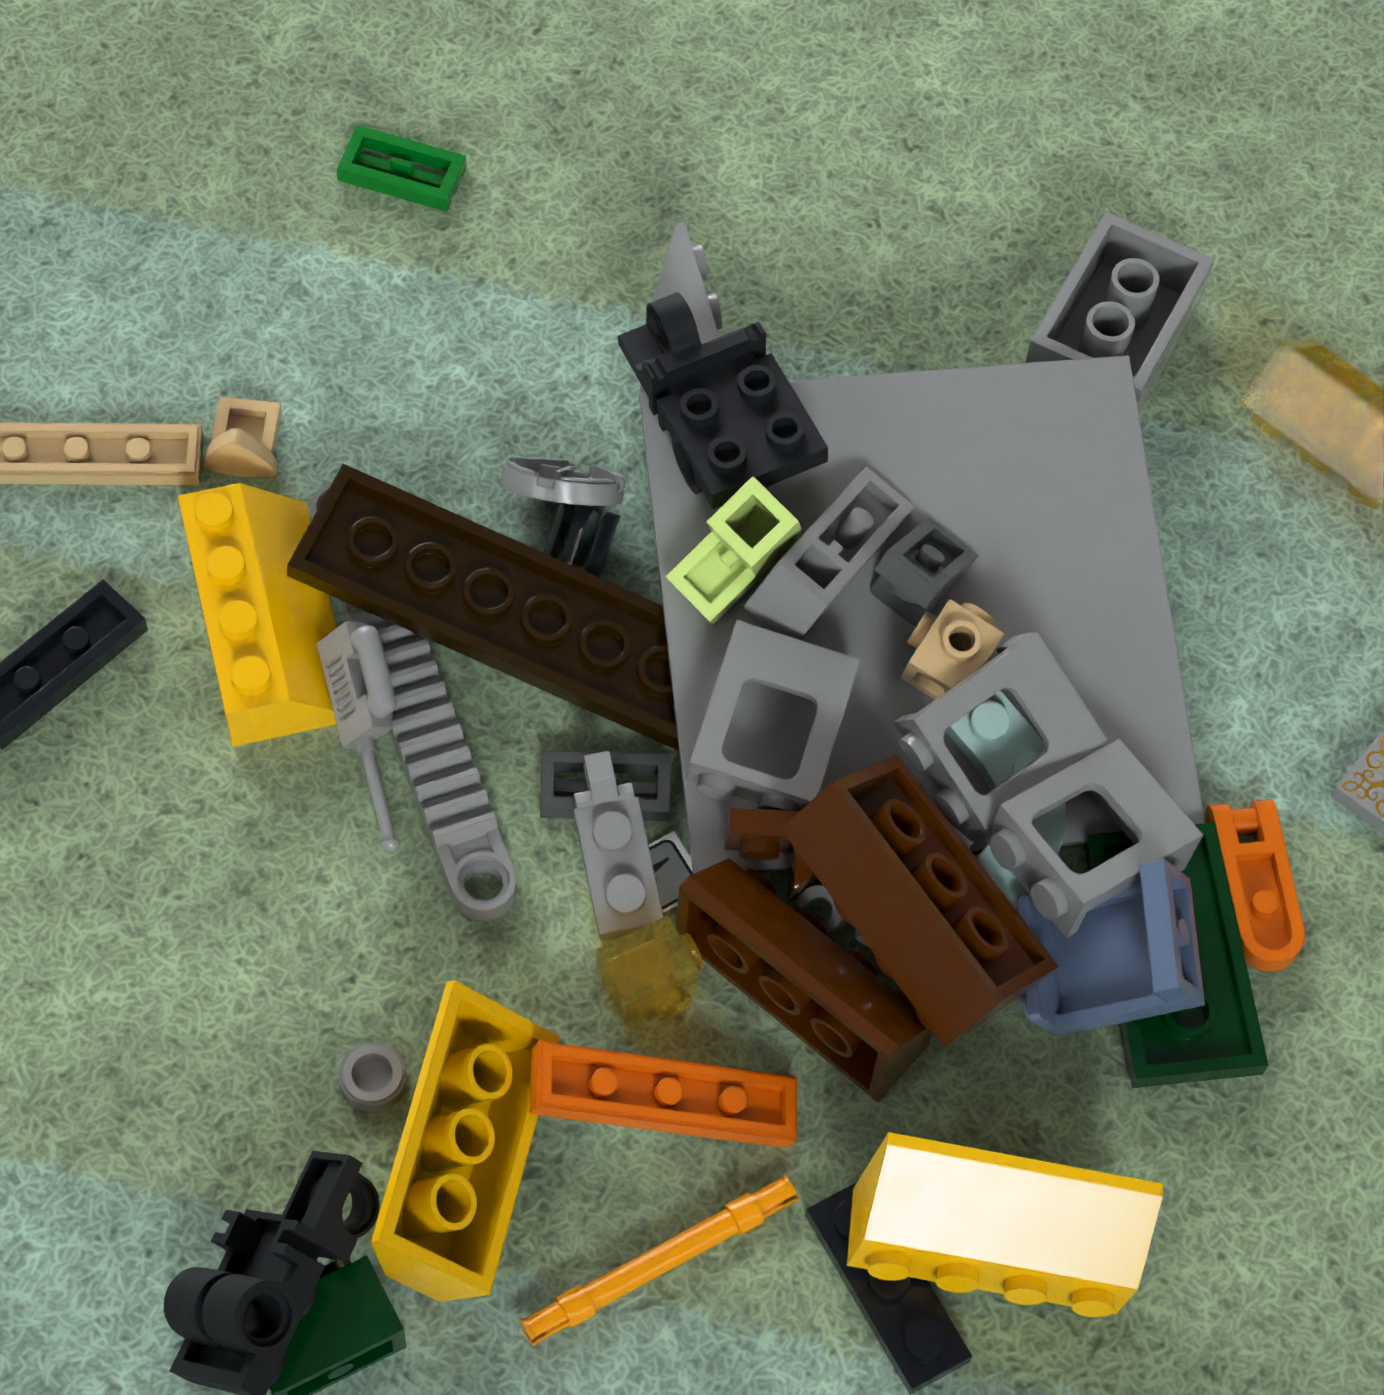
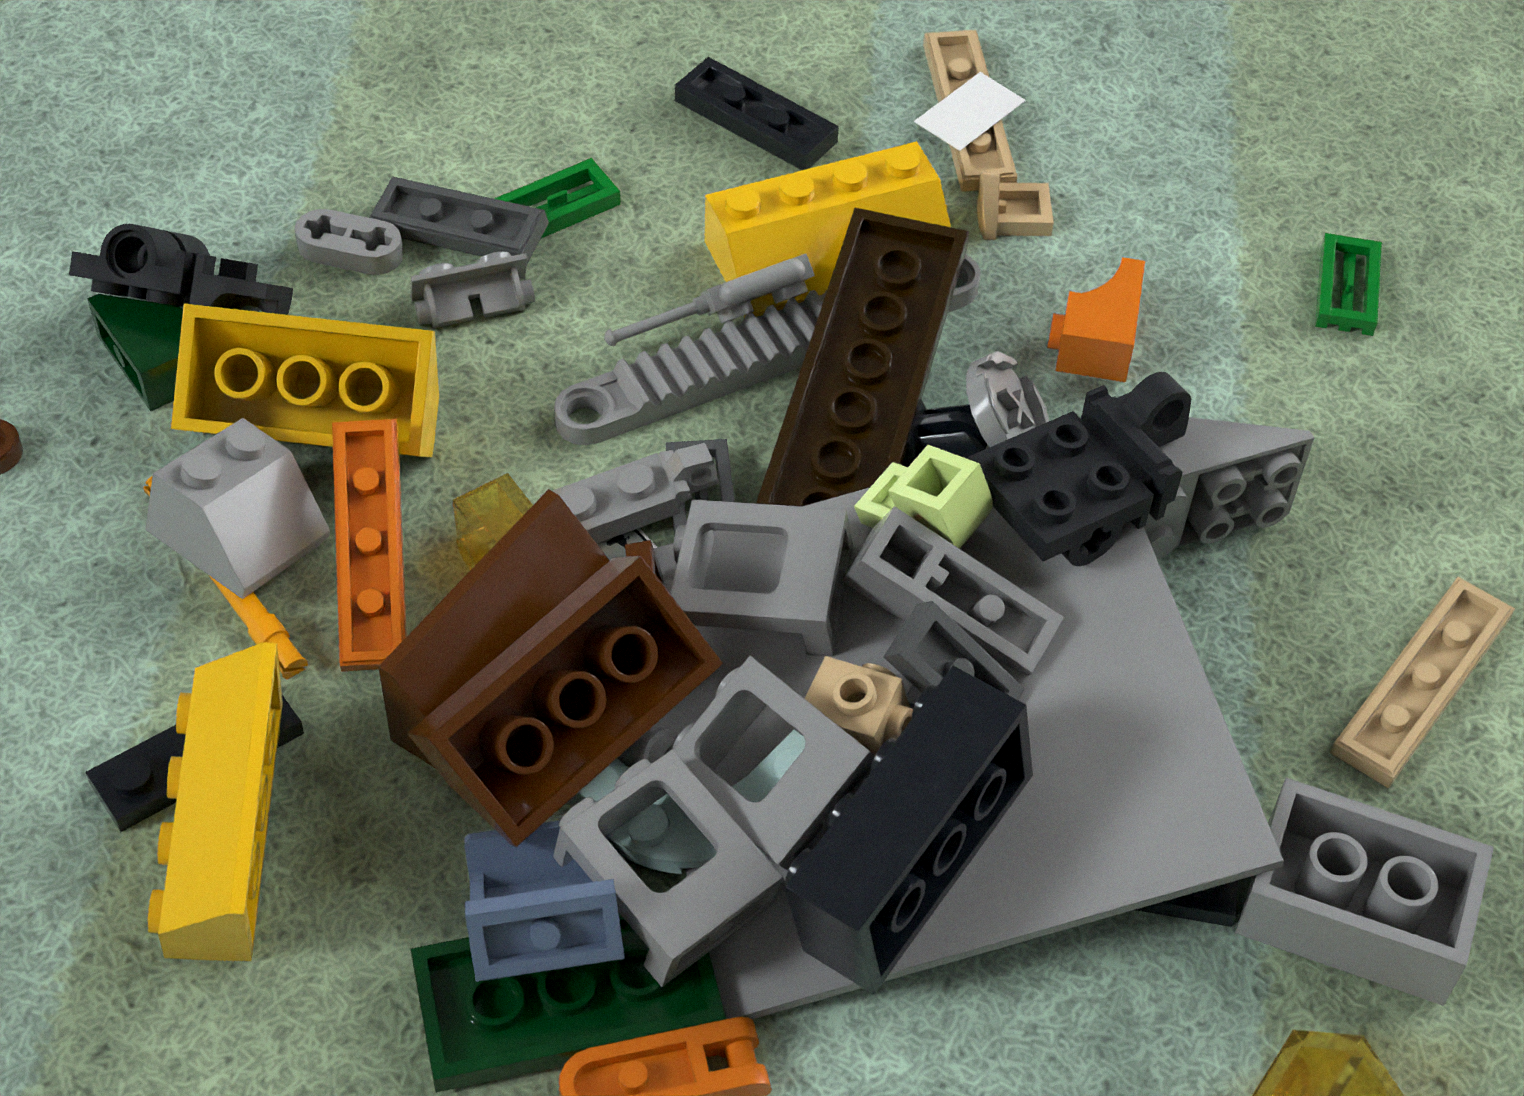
camera: 85 degrees right, 10 degrees down
(94, 449) = (969, 111): none -> white sticker
(166, 1111) = (349, 241): none -> light grey beam
(171, 935) = (568, 209): none -> green tile
(175, 993) = (459, 219): none -> dark grey tile
(280, 959) = (449, 289): none -> light grey hinge
(445, 380) = (1100, 326): none -> orange arch
(604, 1230) = (236, 508): none -> light grey slope
(884, 231) = (1422, 682): none -> tan tile
(1095, 618) = (910, 828): none -> black brick

